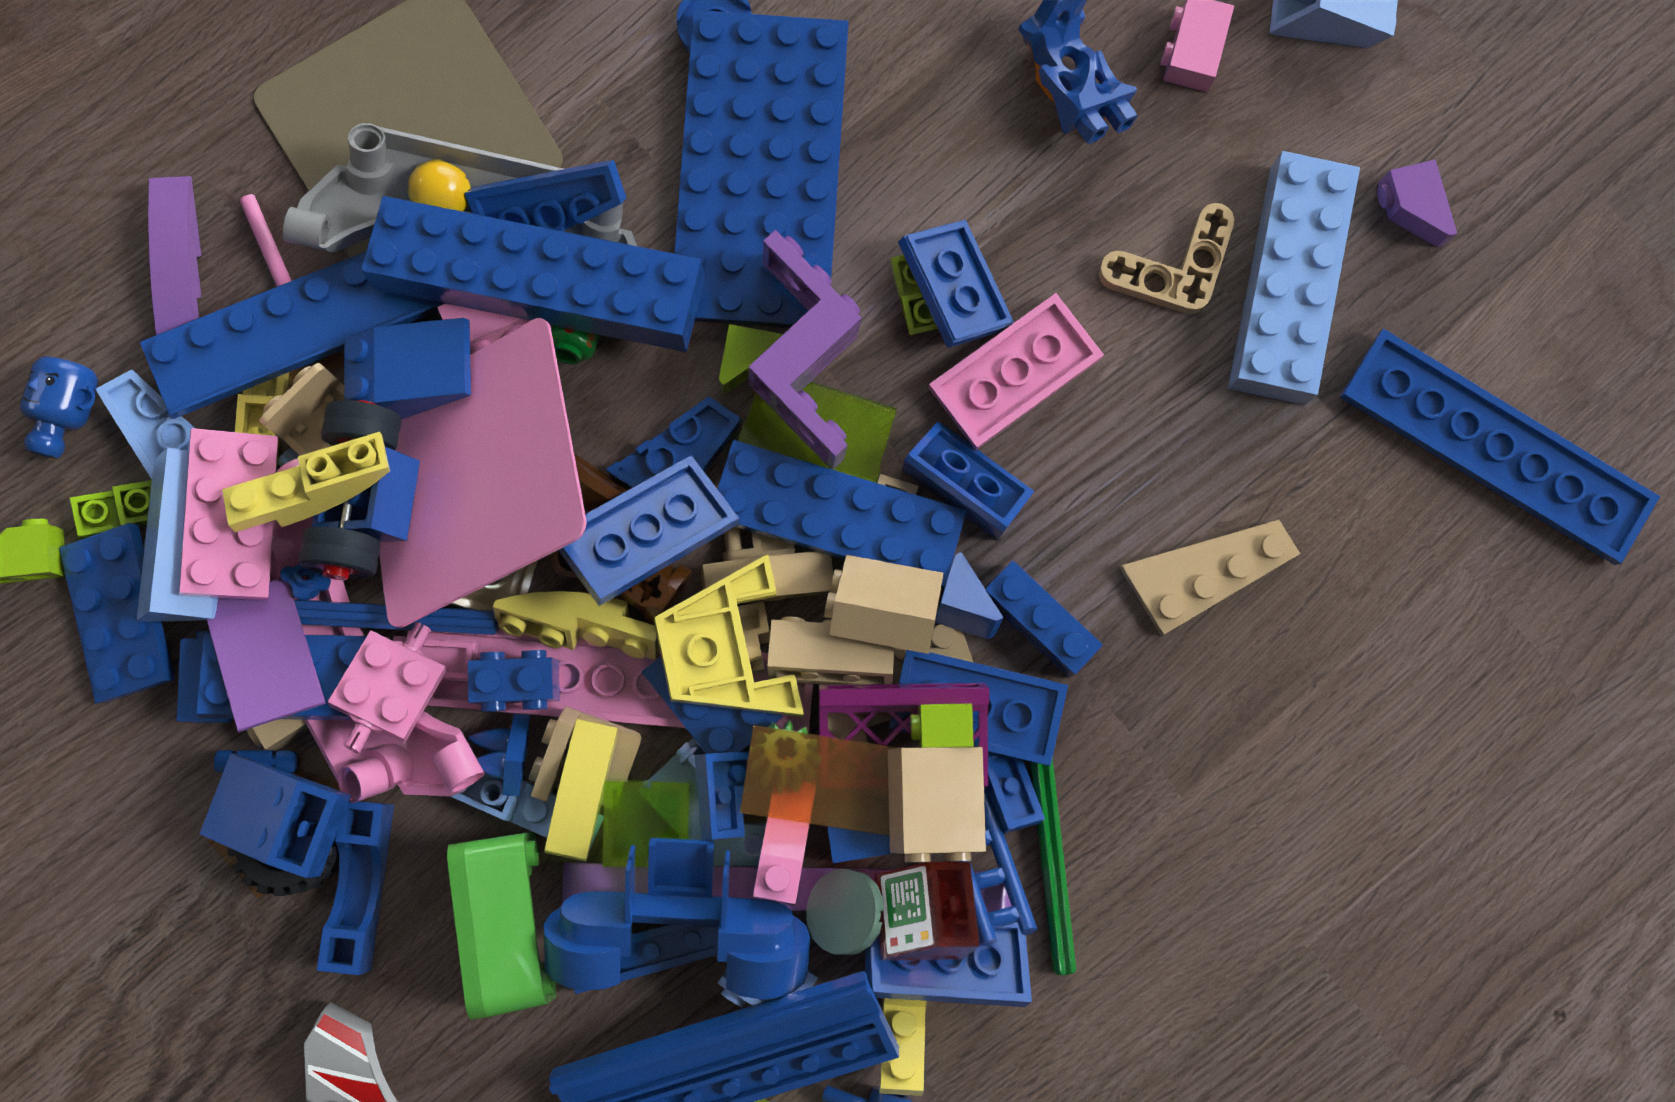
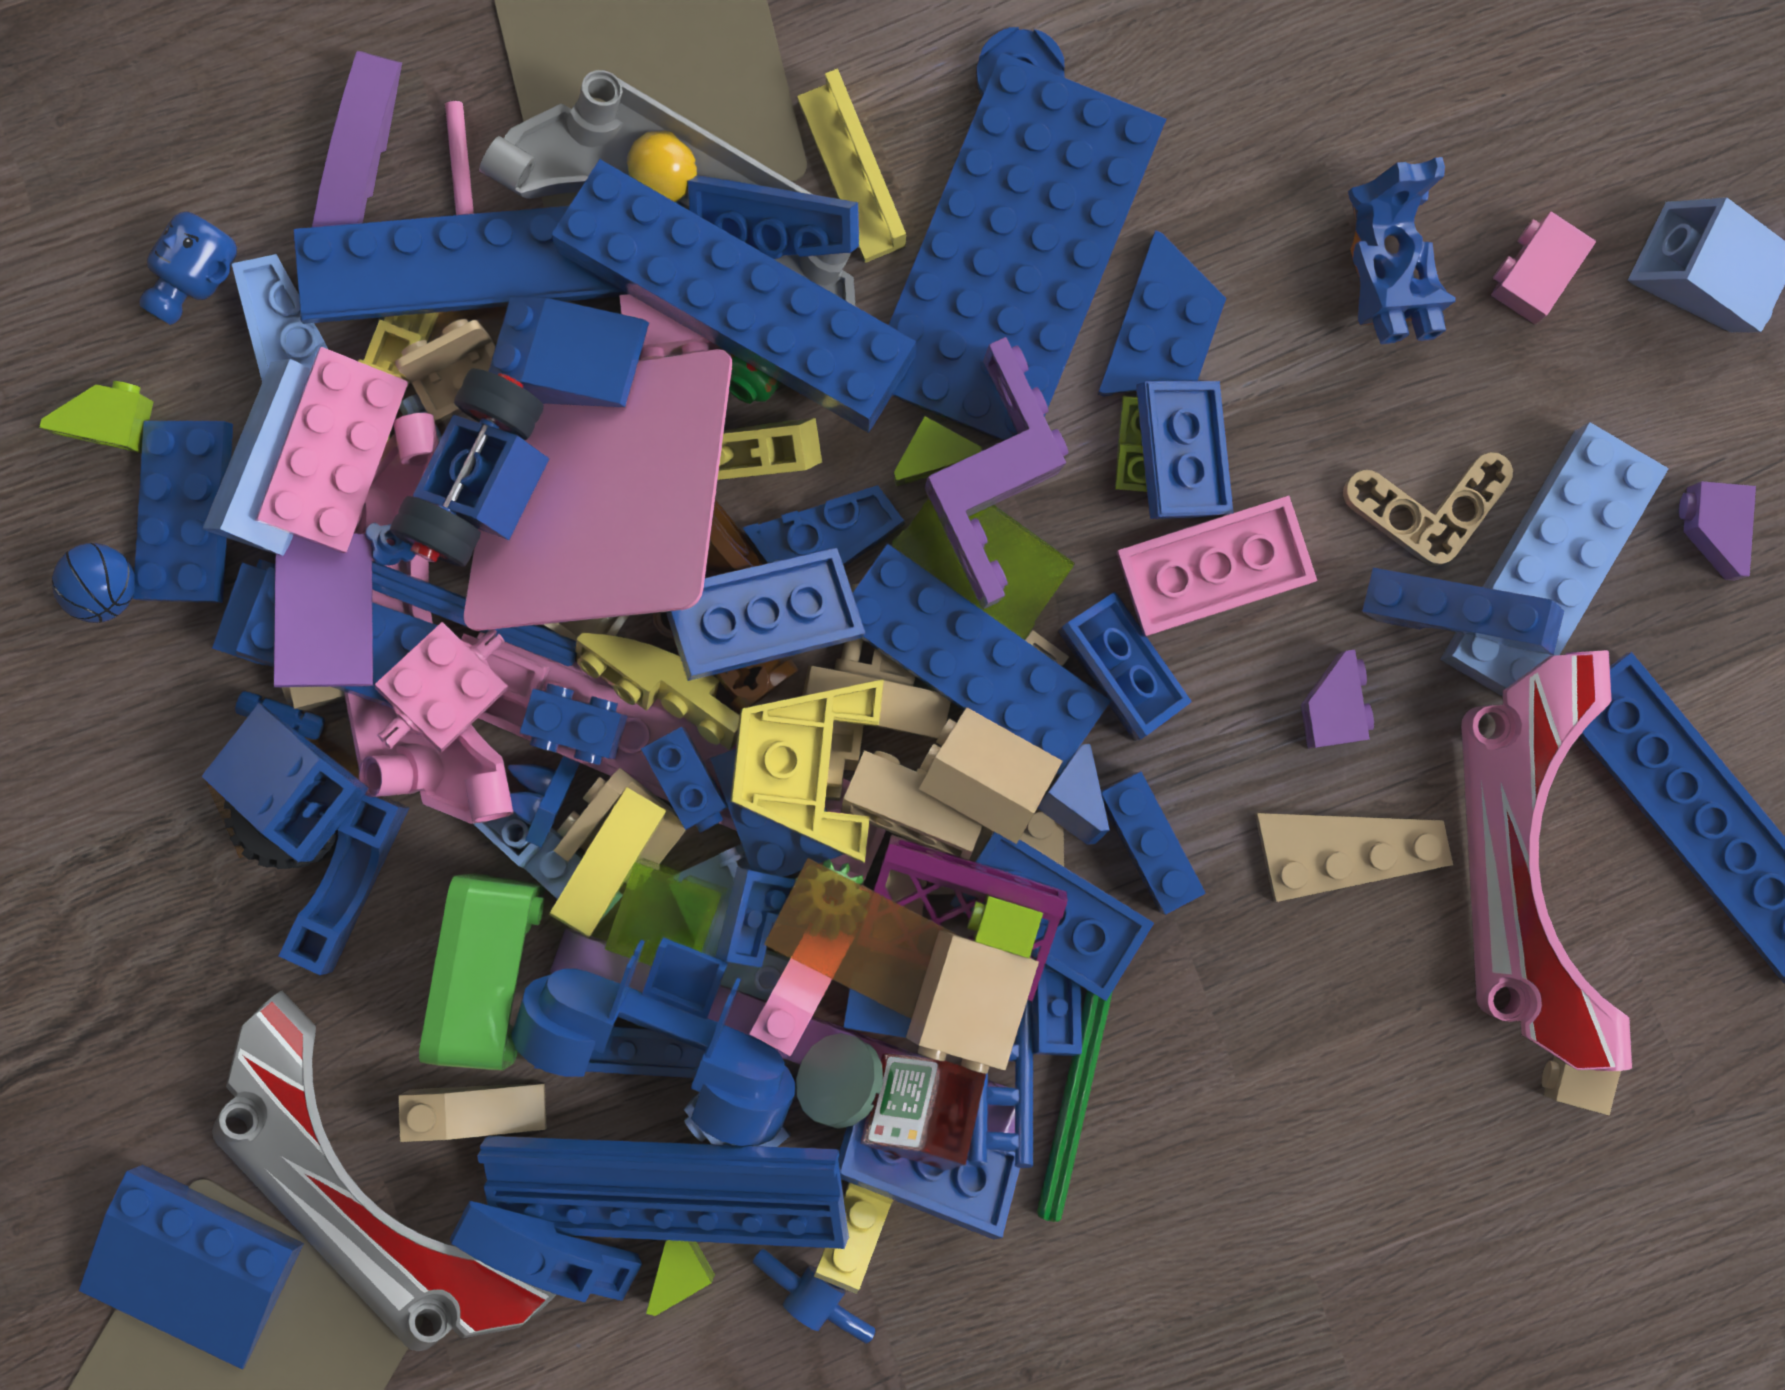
camera: 25 degrees right, 5 degrees up
(55, 699) = (93, 582): none -> blue piece
(111, 509) = (211, 398): lime slope -> none
(313, 487) = (426, 453): light yellow slope -> none
(532, 1052) = (471, 1111): none -> tan slope
(601, 140) = (852, 166): none -> light yellow fence
(606, 395) = (769, 449): none -> light yellow slope
(626, 697) = (686, 780): none -> blue brick
(904, 186) = (1165, 322): none -> blue wing
(1155, 454) = (1335, 705): none -> medium lavender slope
(1265, 328) = (1479, 611): none -> blue arch
(1328, 492) = (1504, 809): none -> bright pink panel
(1473, 700) = (1580, 1088): none -> tan brick

